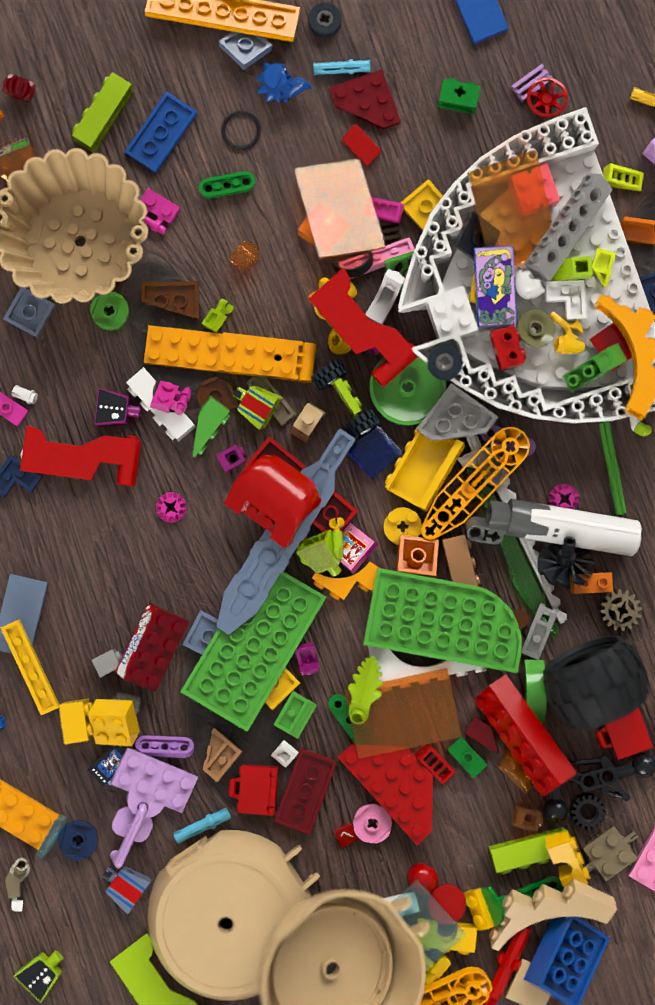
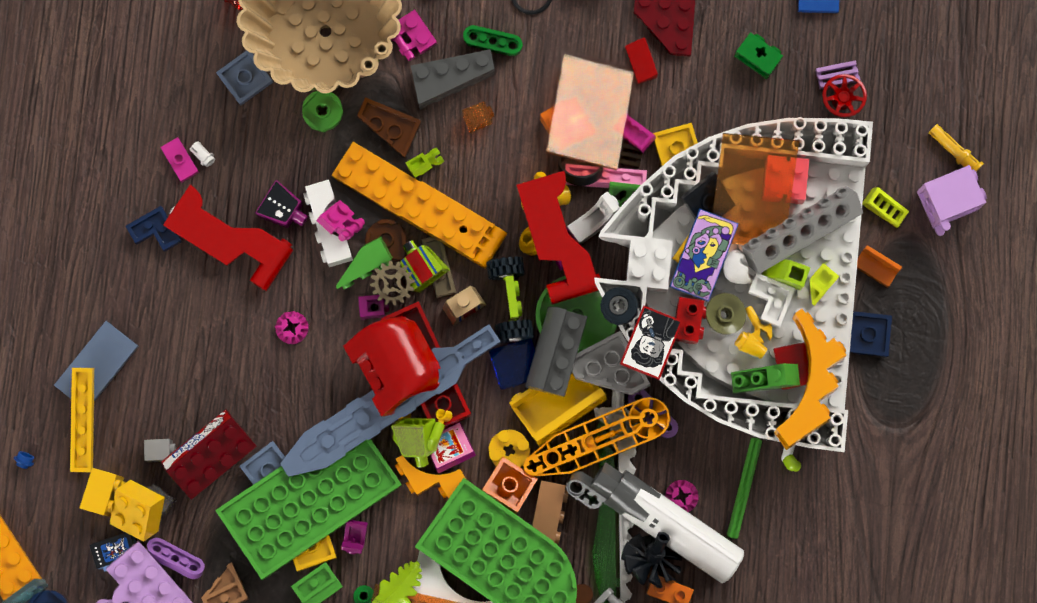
camera: 30 degrees right, 5 degrees down
(204, 231) = (450, 75): none -> dark grey wedge
(237, 439) = (386, 290): none -> dark tan gear
(405, 425) = (556, 351): none -> dark grey brick
(486, 381) = (651, 342): none -> tile

